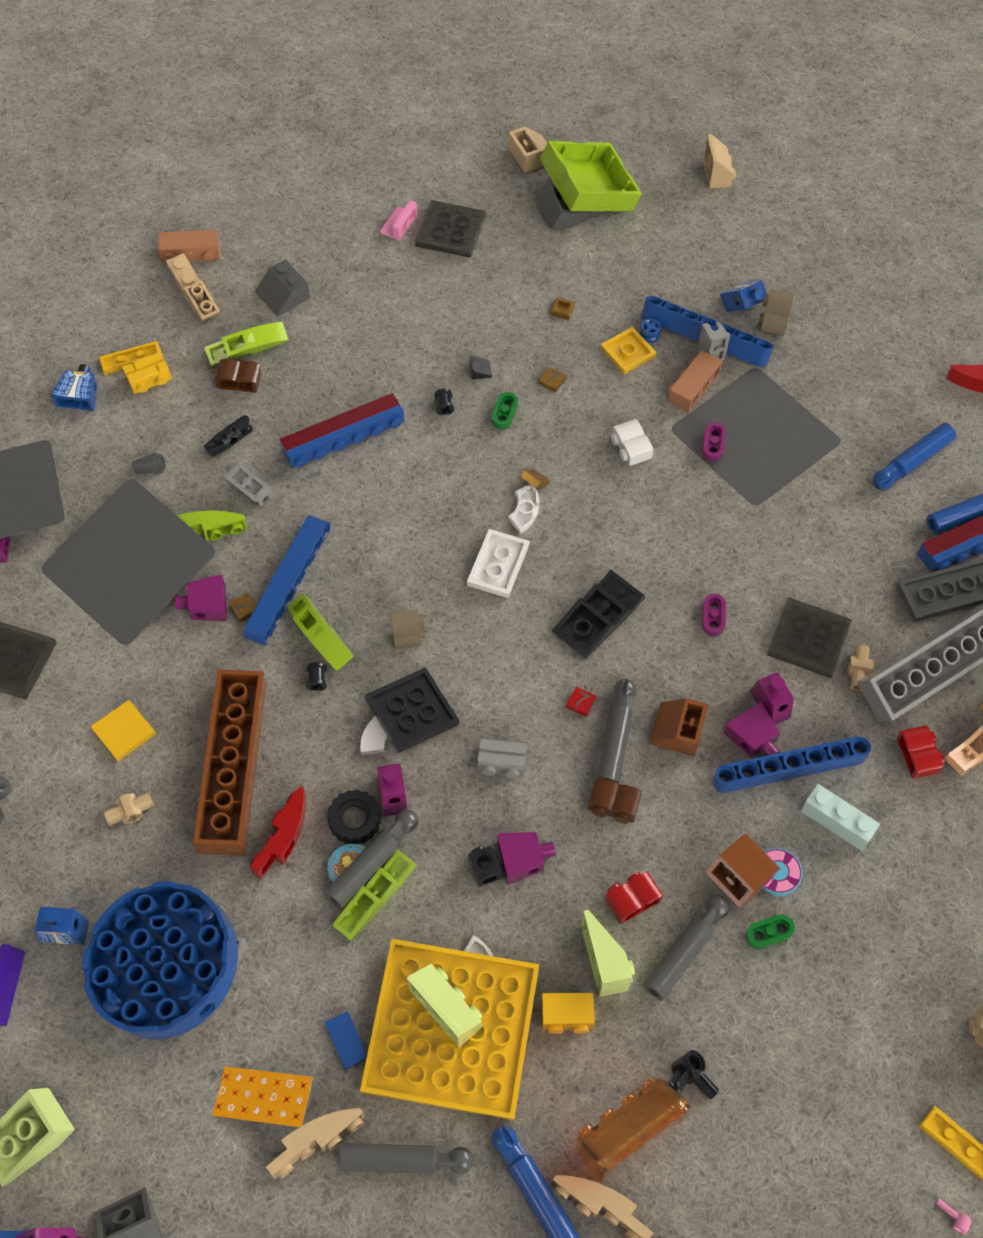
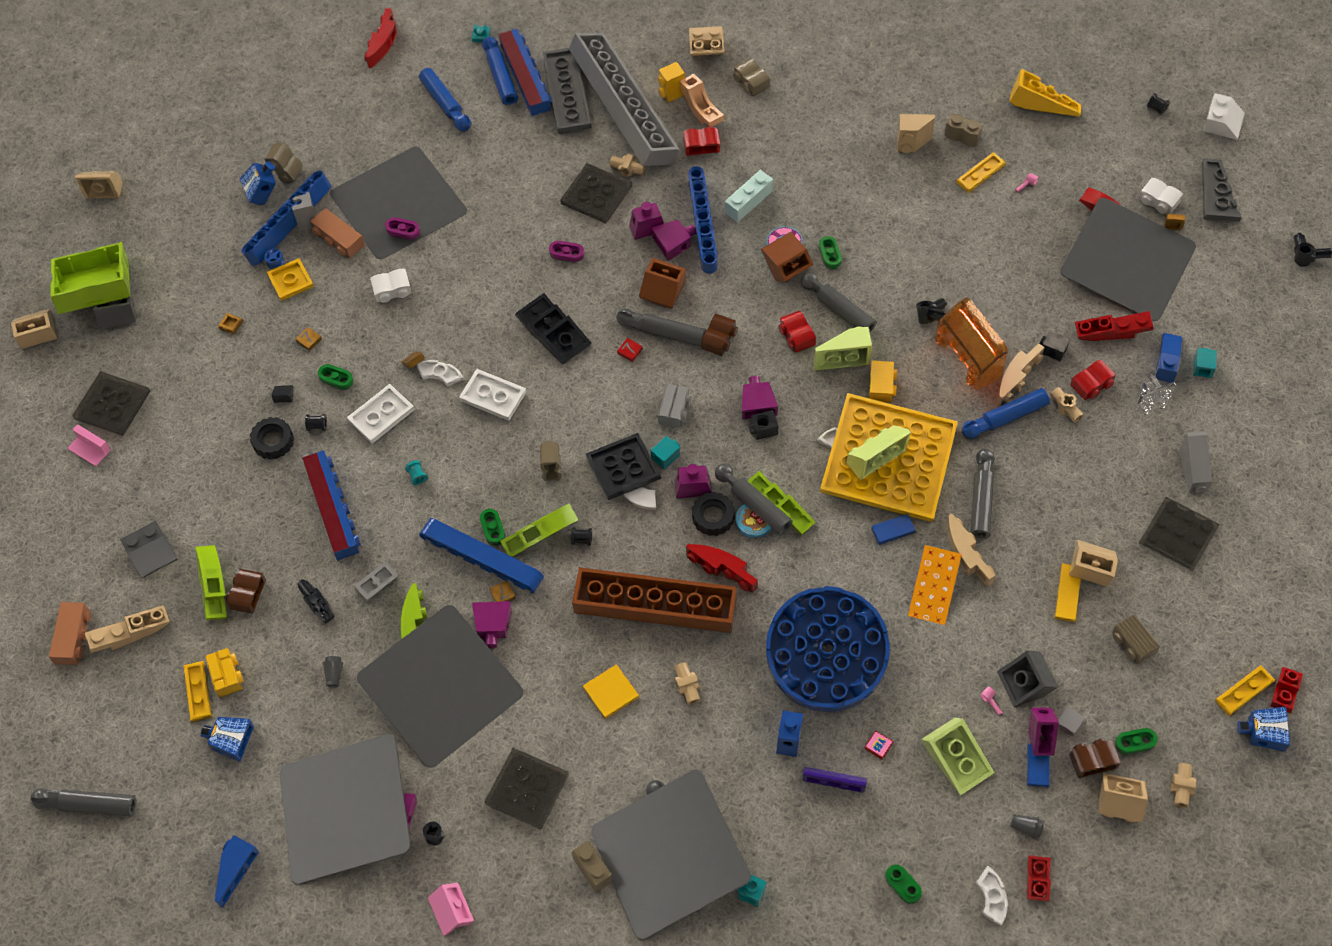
camera: 80 degrees left, 0 degrees up
(16, 293) = (84, 801): none -> dark grey piece
(46, 1037) = (878, 745): none -> tile
(108, 1174) = (987, 696): none -> bright pink hand
(324, 585) = (493, 527): none -> green plate
(388, 502) = (416, 472): none -> teal bush
(425, 379) = (266, 426): none -> black tyre
(435, 754) = (665, 452): none -> teal brick
(462, 459) = (380, 413): none -> white plate

